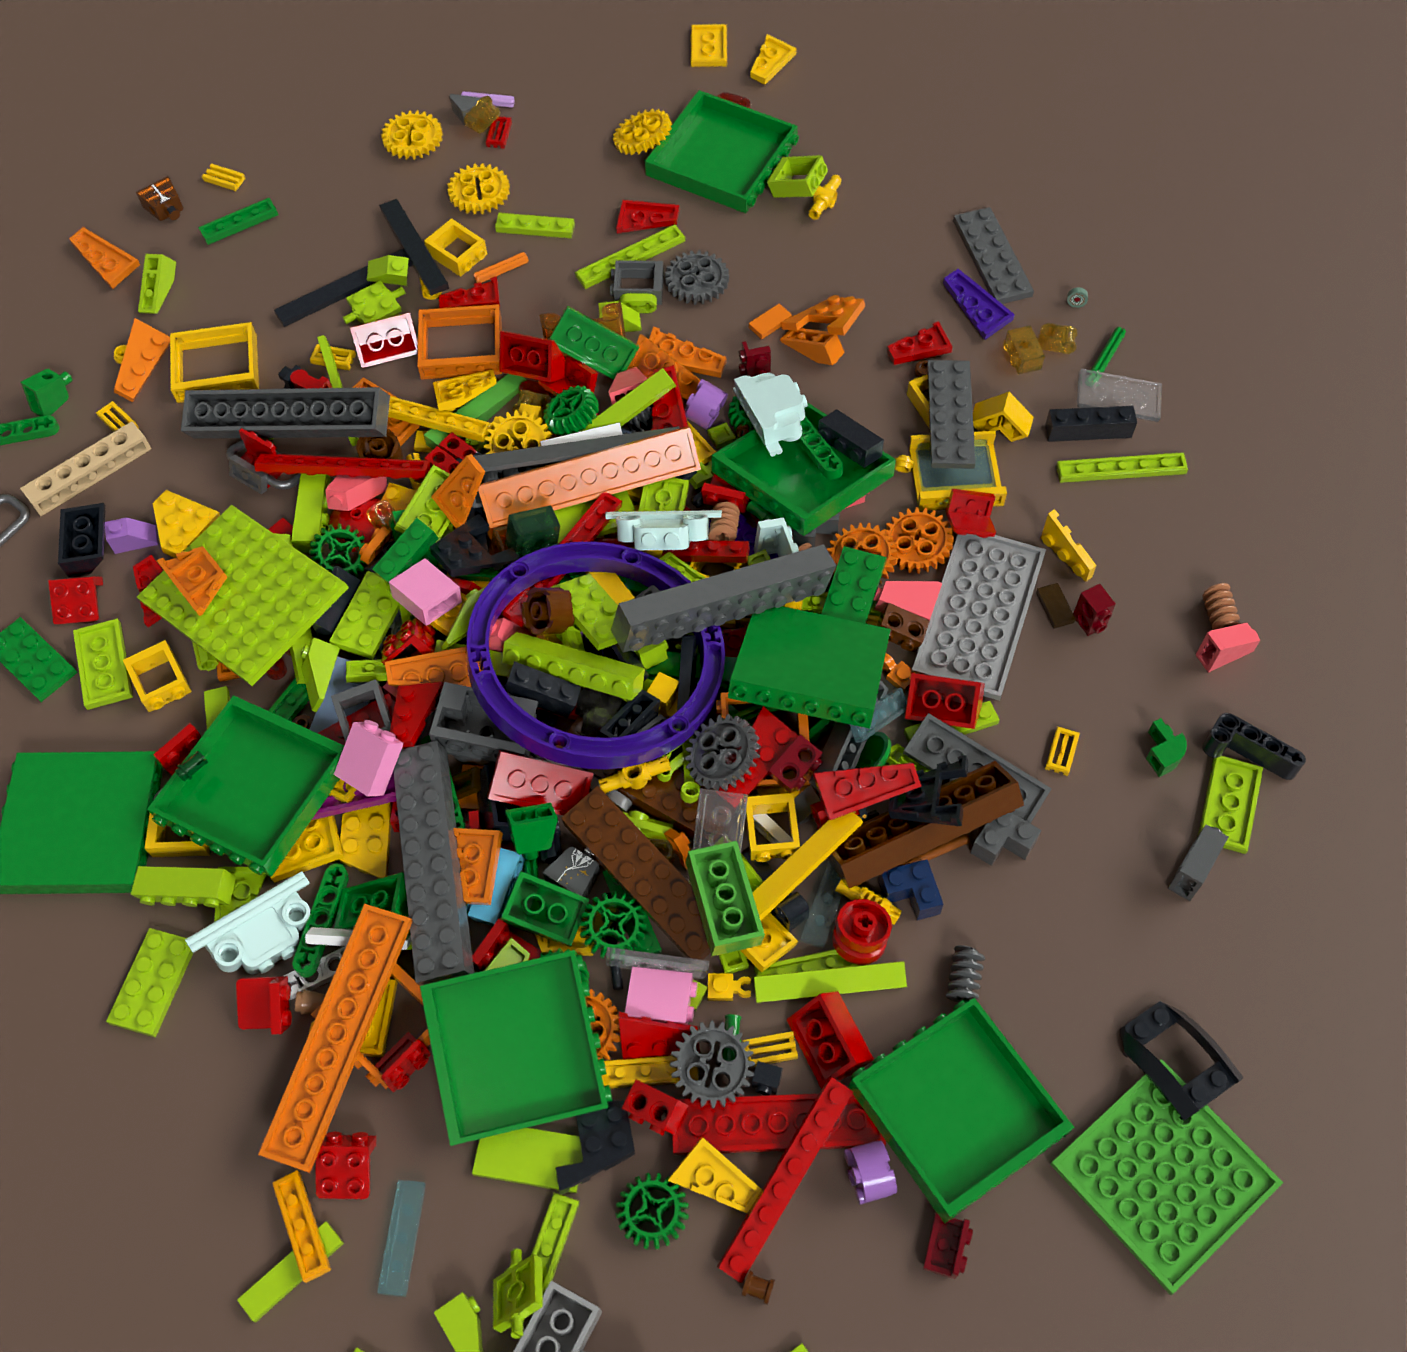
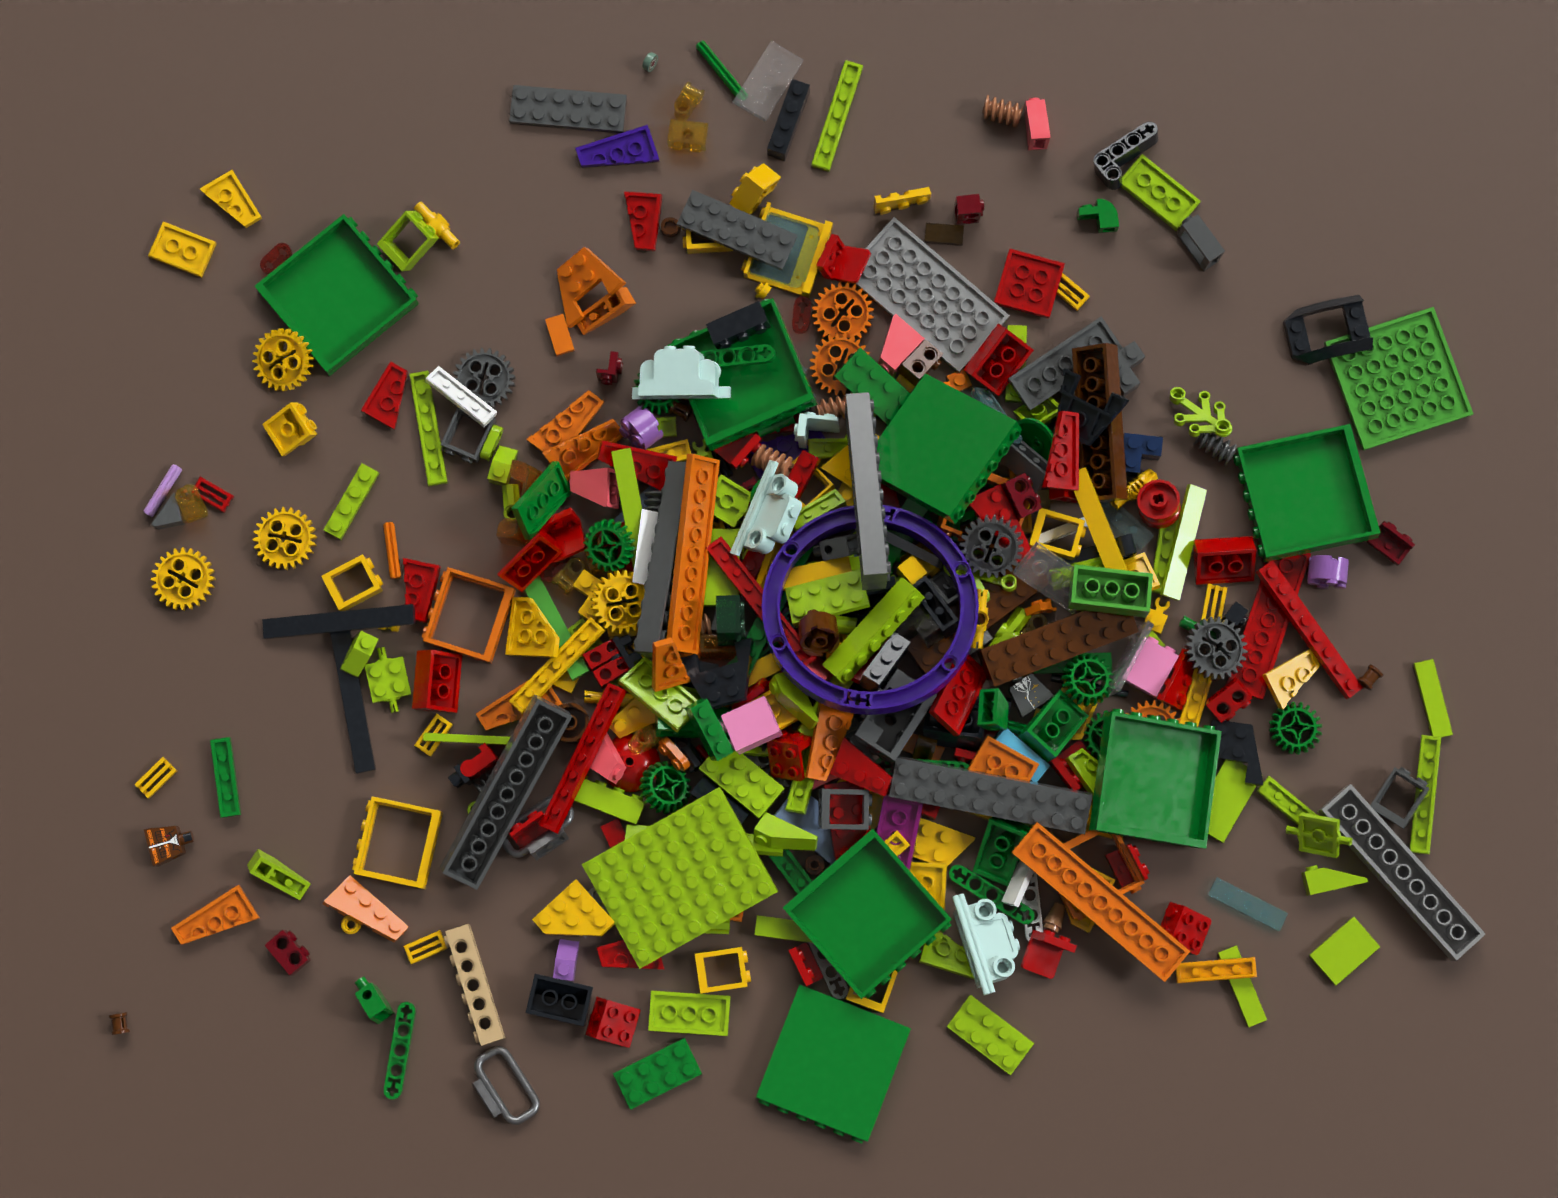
camera: 70 degrees left, 20 degrees up
(81, 316) = (284, 956): none -> dark red brick
(183, 886) = (927, 990): lime brick -> none
(191, 766) = (839, 955): dark green pin -> none
(195, 576) = (653, 910): orange wing -> none
(368, 758) = (891, 814): bright pink brick -> none
(583, 159) = (290, 428): none -> yellow plate
(668, 259) = (461, 396): none -> white tile
(895, 506) = (806, 315): none -> clear red beam
(988, 964) = (1219, 426): none -> lime plant
(1048, 705) = (1029, 283): none -> red plate

